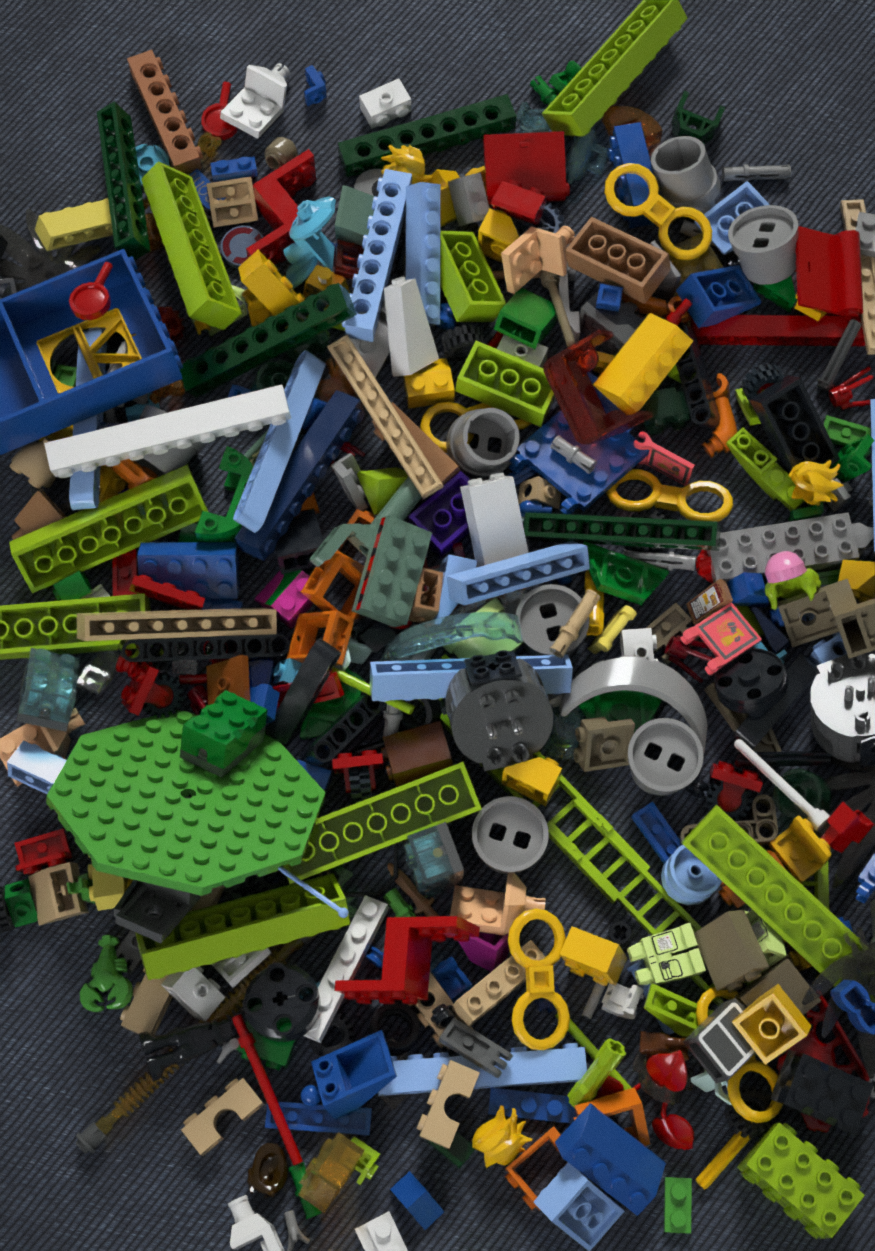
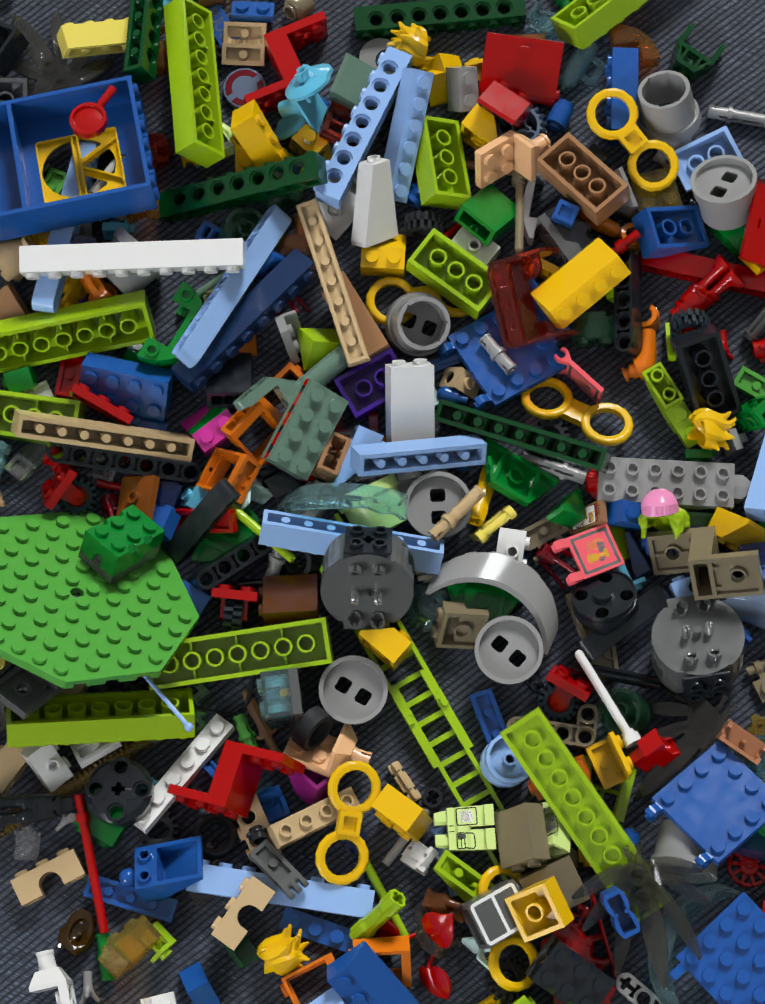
camera: 15 degrees right, 5 degrees up
(190, 1085) = (27, 844): none -> clear bracket
(476, 885) = (312, 728): none -> black tyre
(574, 207) = (560, 115): none -> blue brick
(583, 921) = (404, 781): none -> tan axle
(688, 598) = (569, 510): none -> green slope
(763, 353) = (697, 294): none -> red piece

